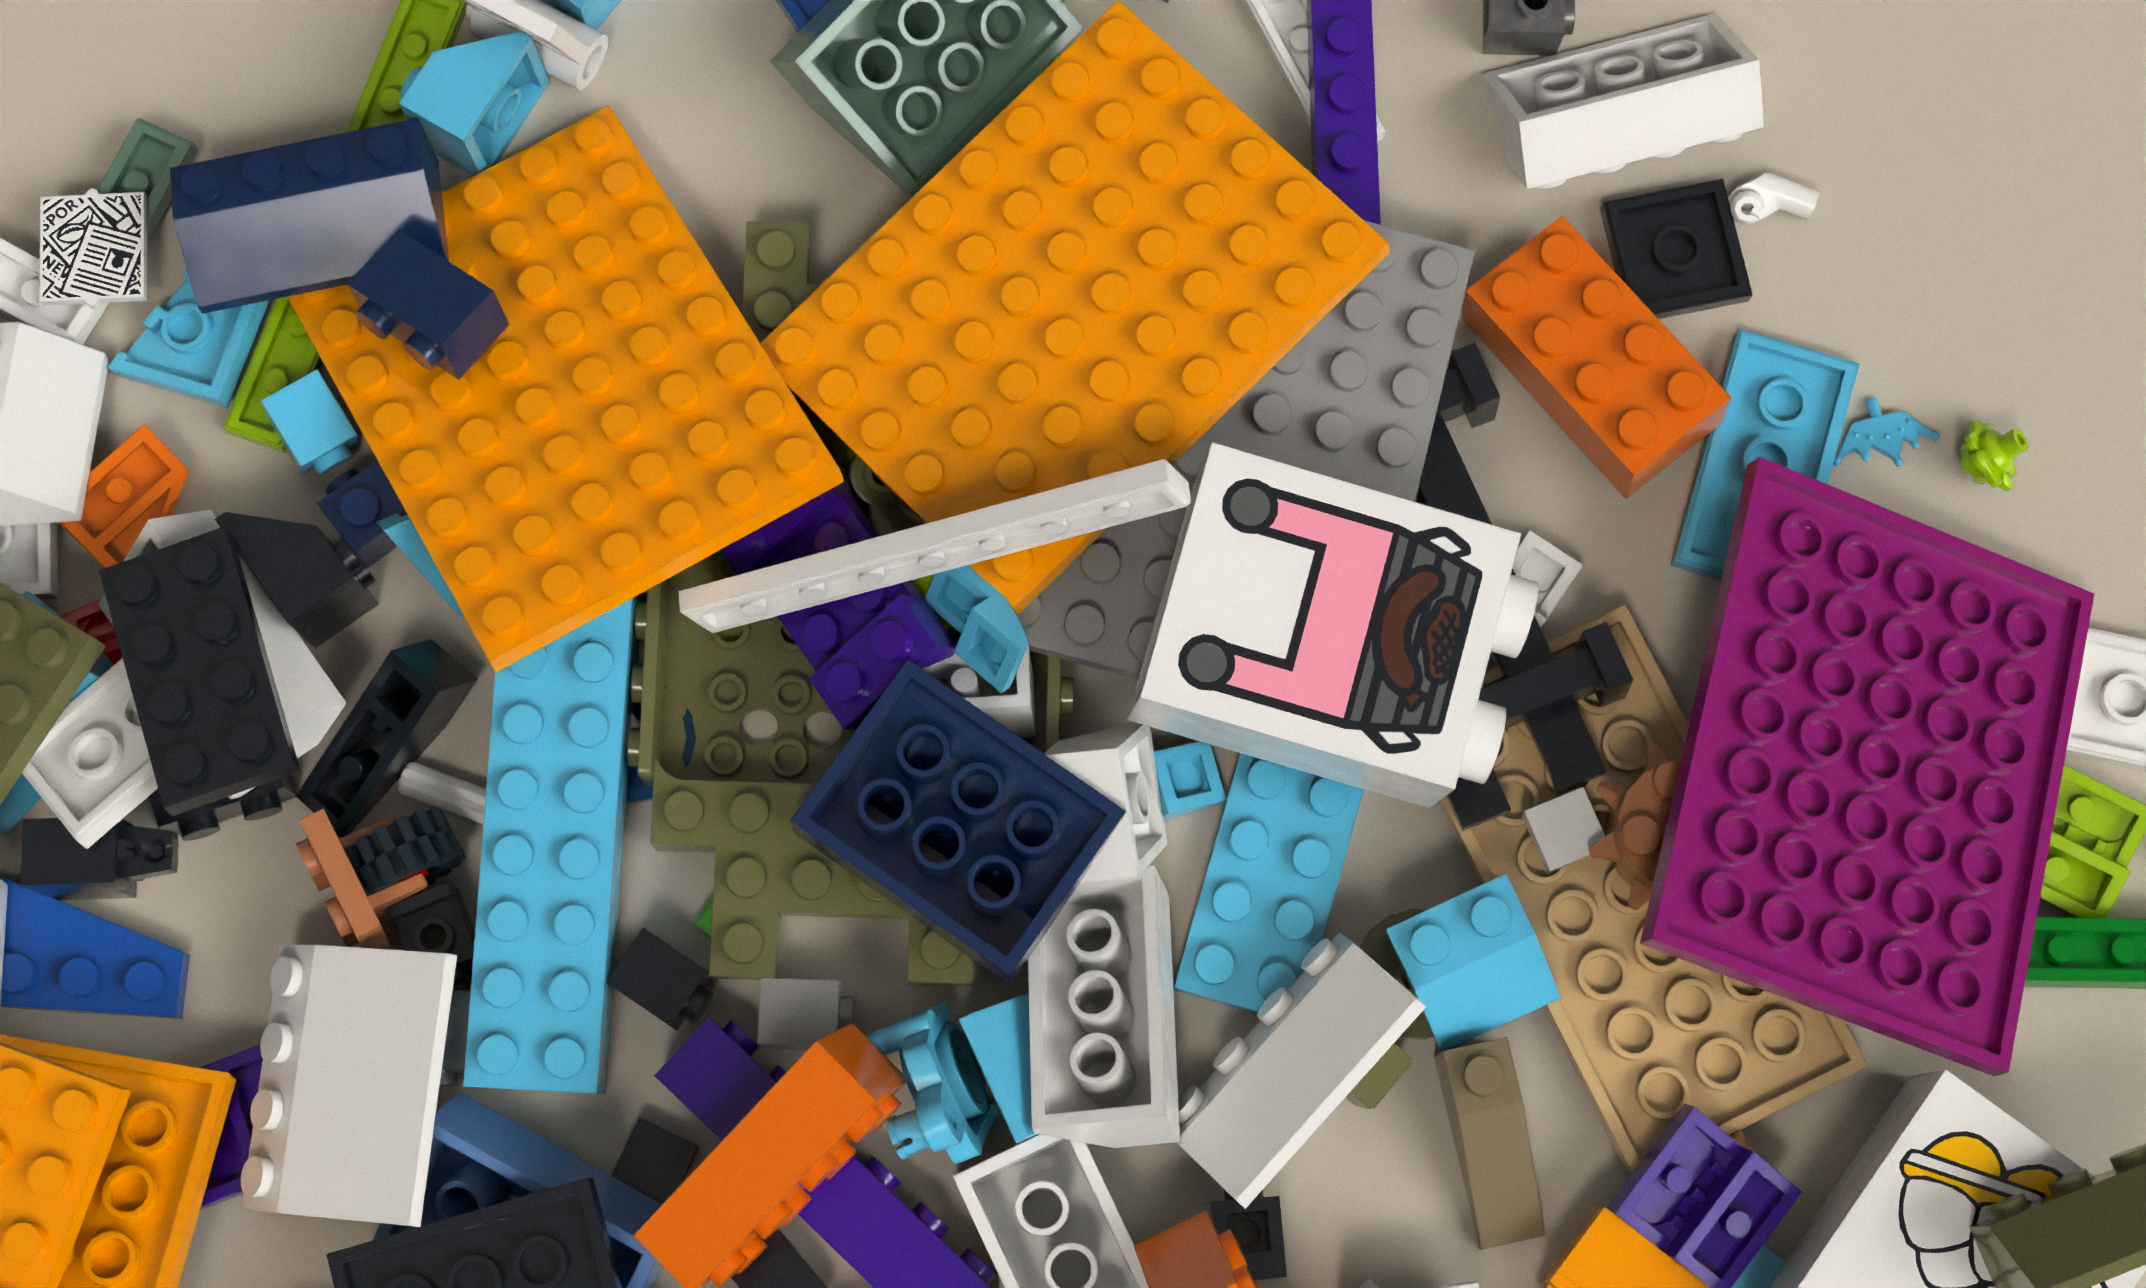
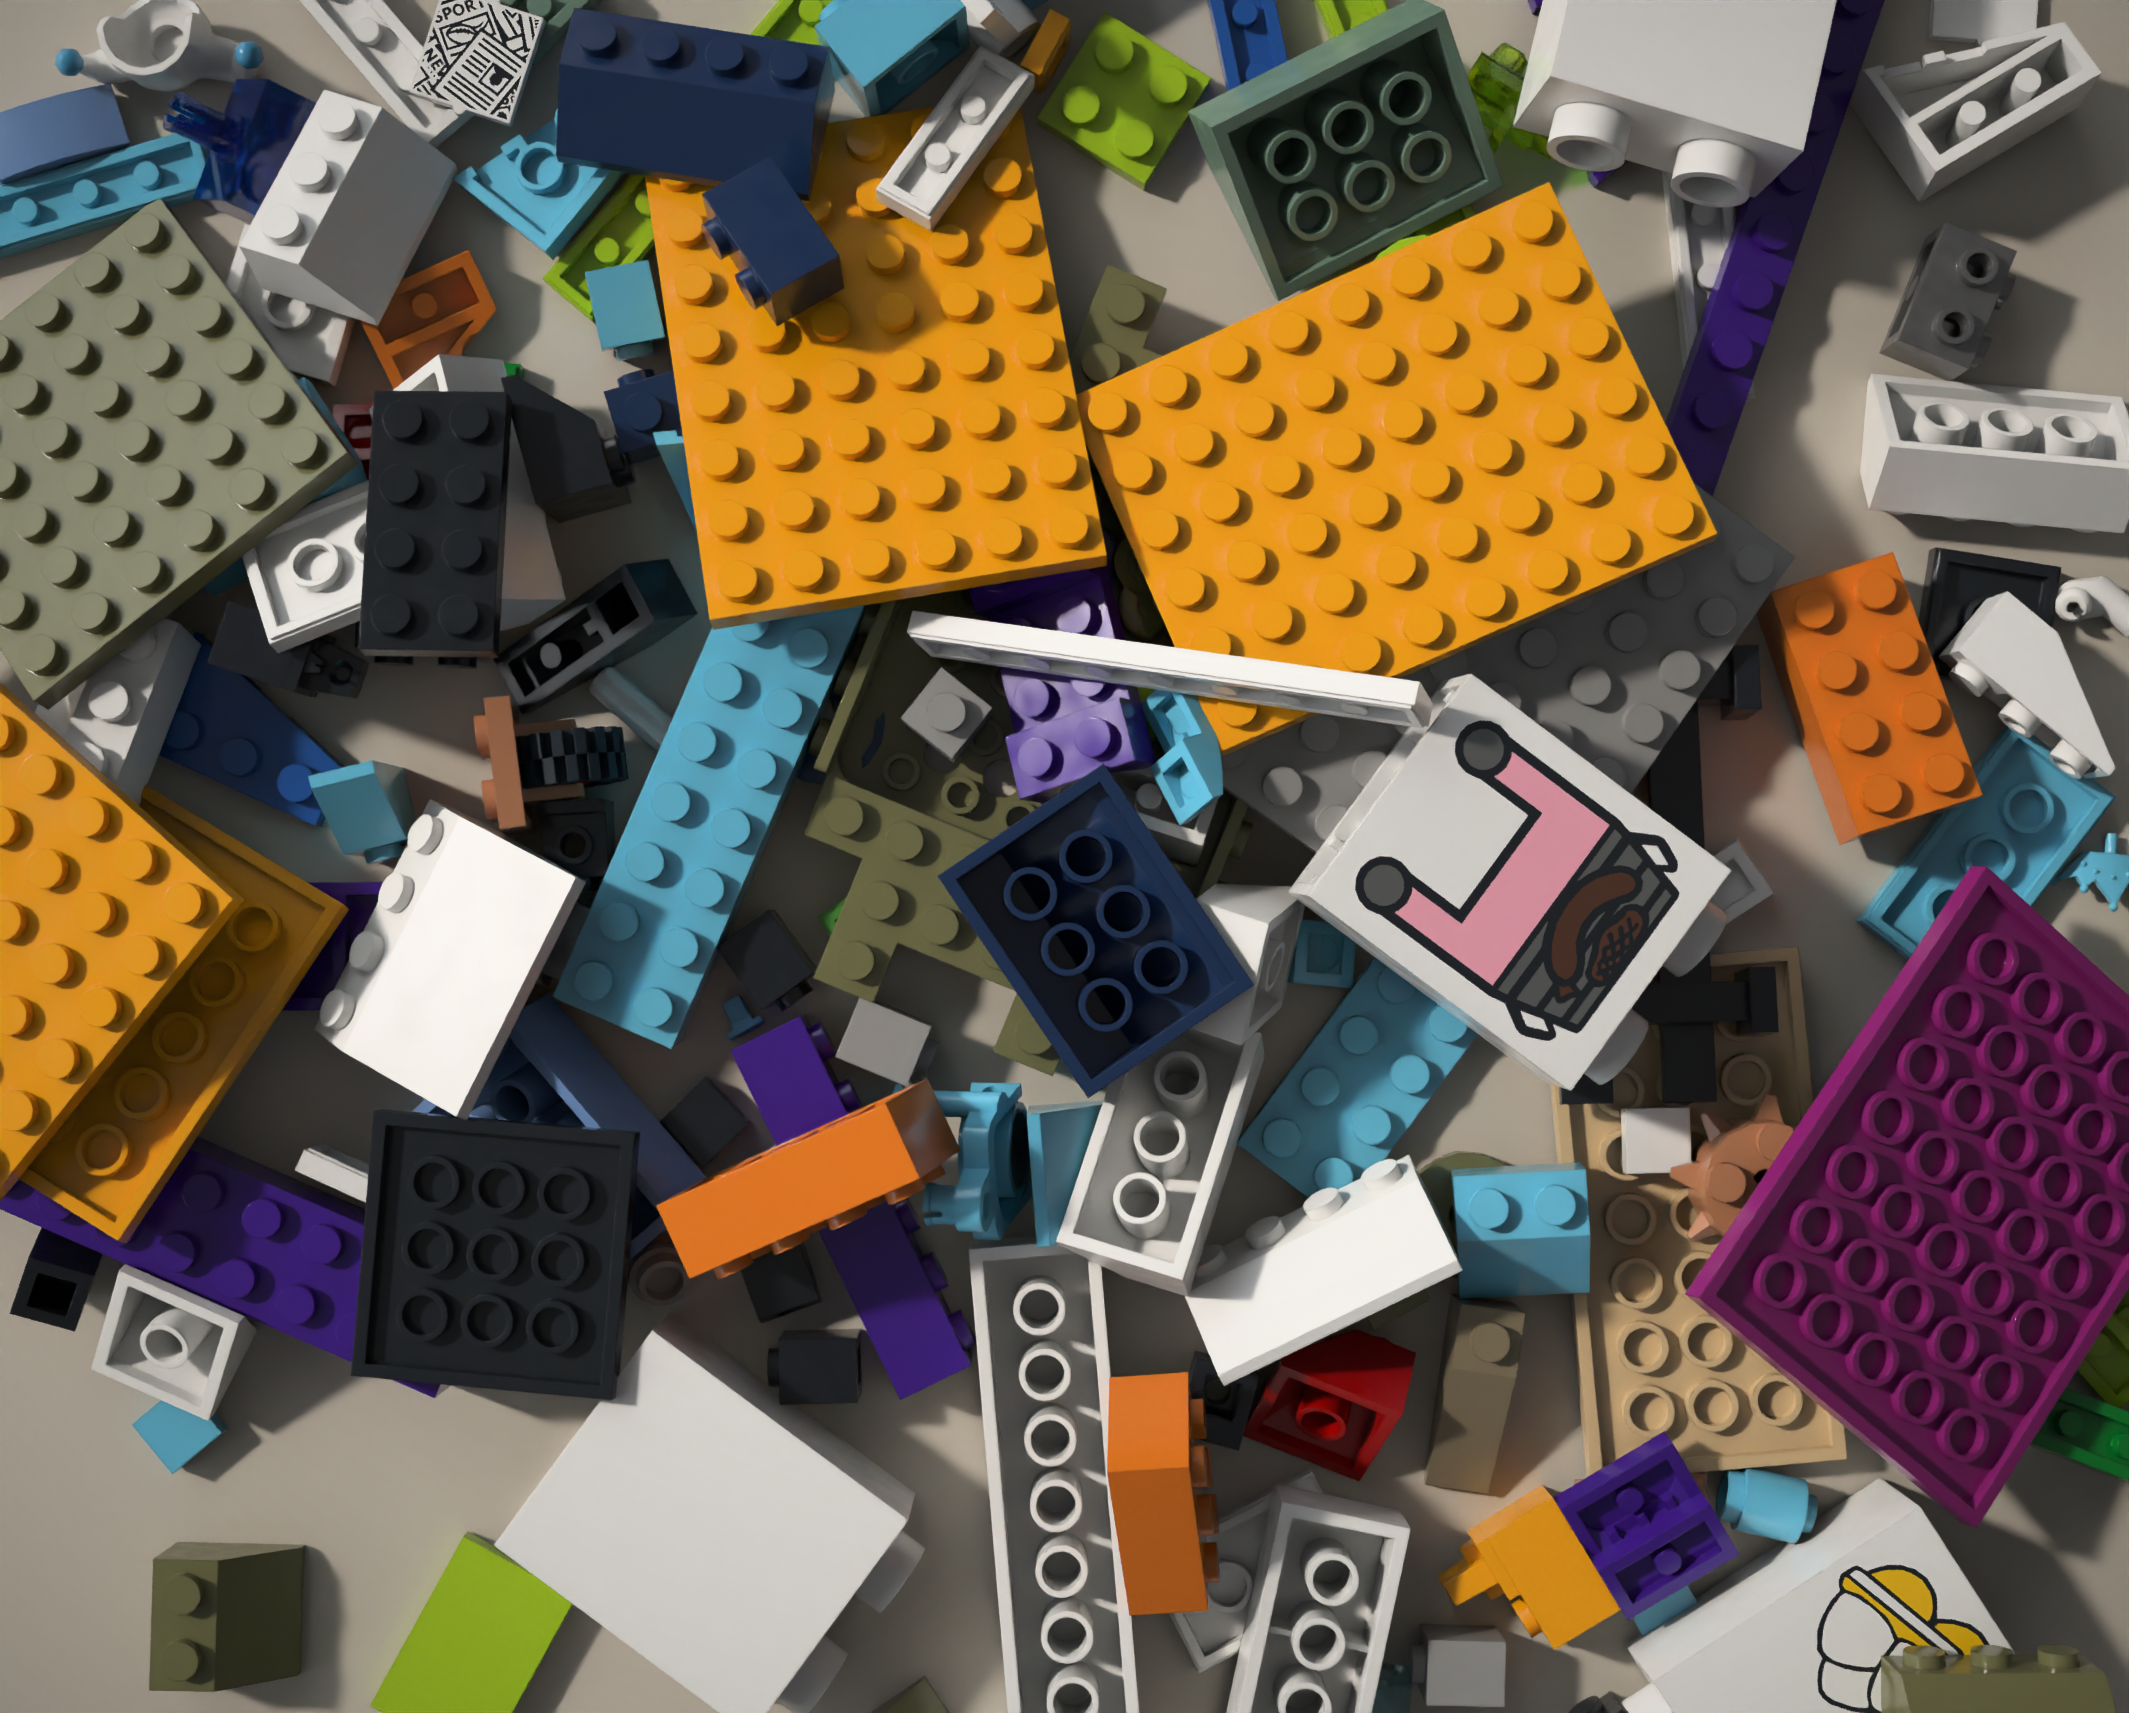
camera: 20 degrees right, 10 degrees up
(220, 976) = (366, 809): none -> medium azure slope
(564, 161) = (955, 138): none -> white tile
(621, 59) = (1047, 49): none -> light orange tile
(654, 1049) = (740, 1018): none -> medium azure piece
(708, 79) = (1123, 101): none -> lime plate
(748, 682) = (947, 715): none -> light grey brick
(1359, 1199) = (1334, 1401): none -> red slope
(1729, 280) = (2028, 675): none -> white slope
(1811, 1139) = (1766, 1504): none -> medium azure brick

